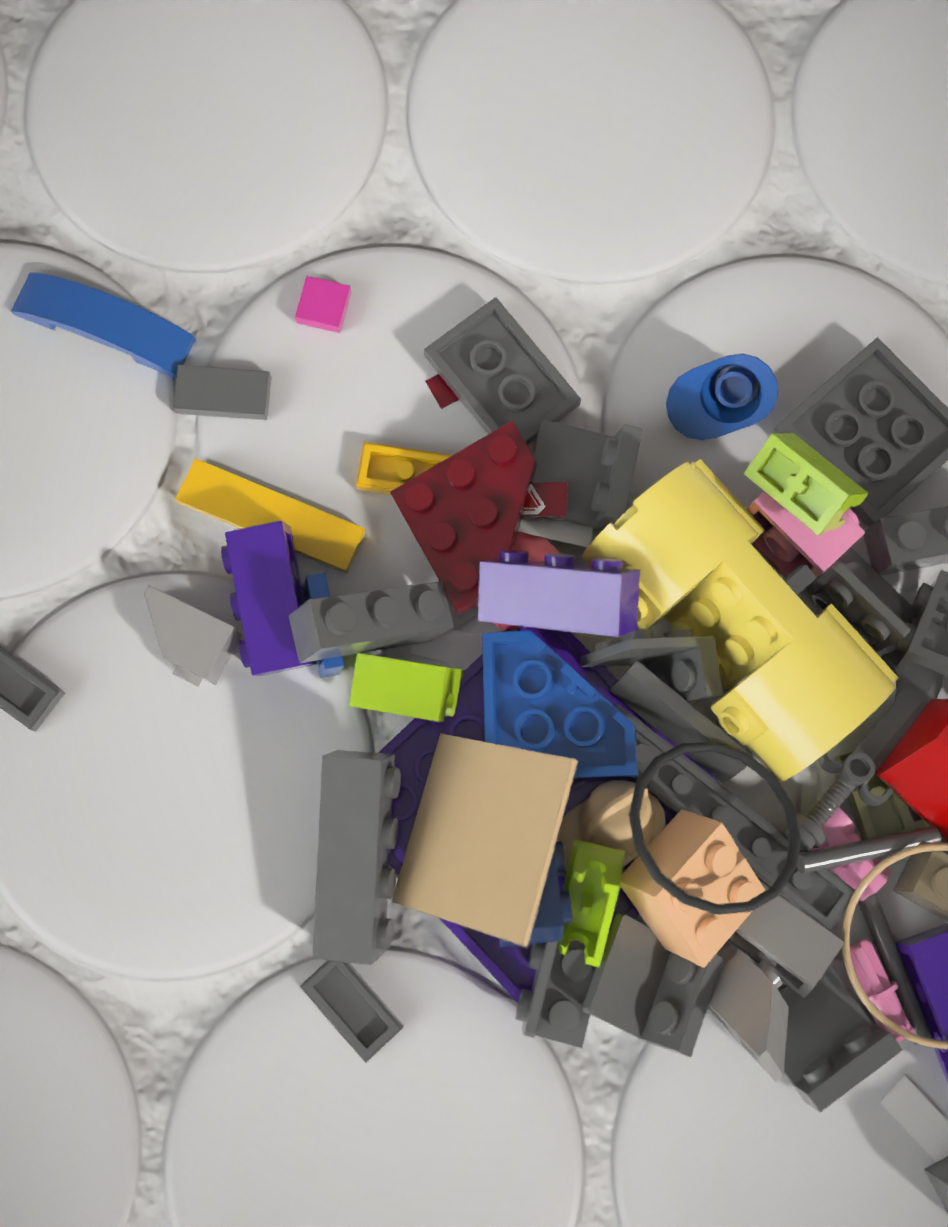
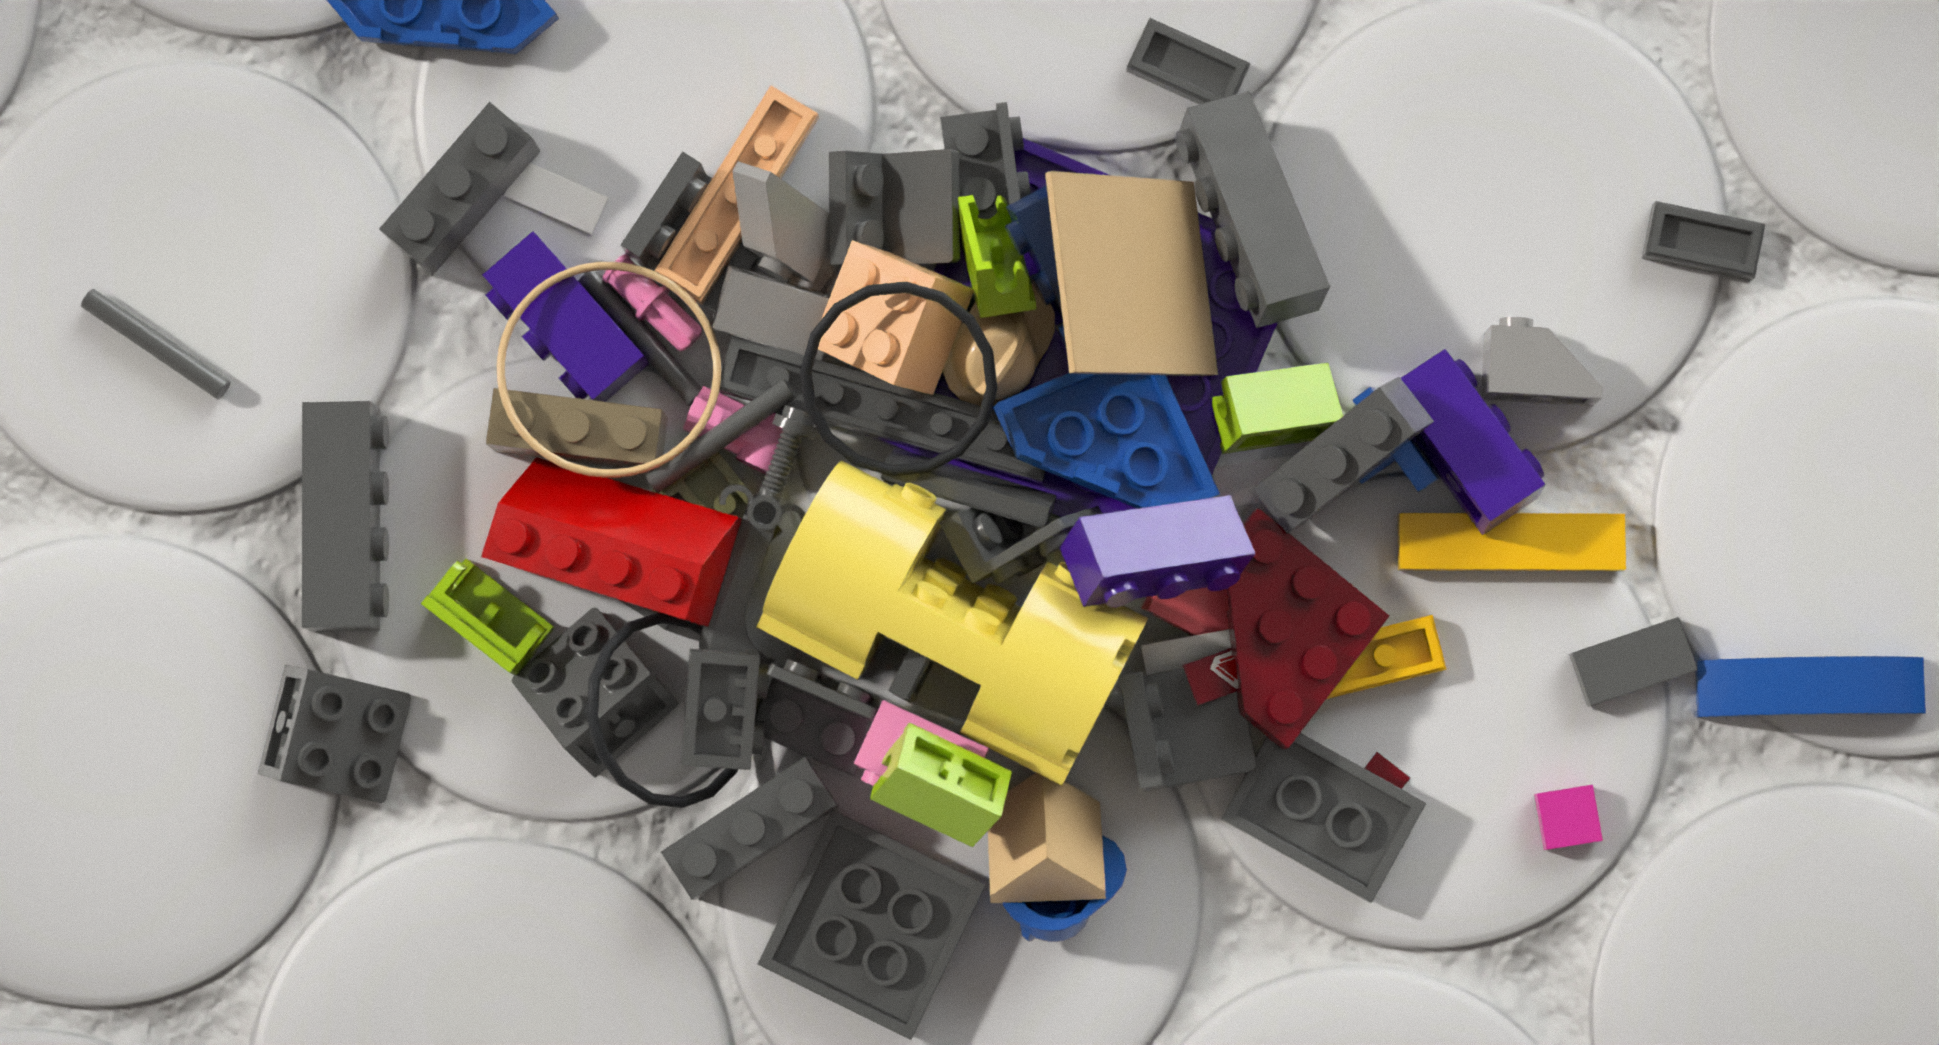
camera: 165 degrees right, 5 degrees up
(724, 425) = (1046, 845): none -> tan slope
(742, 1085) = (713, 226): none -> light nougat tile

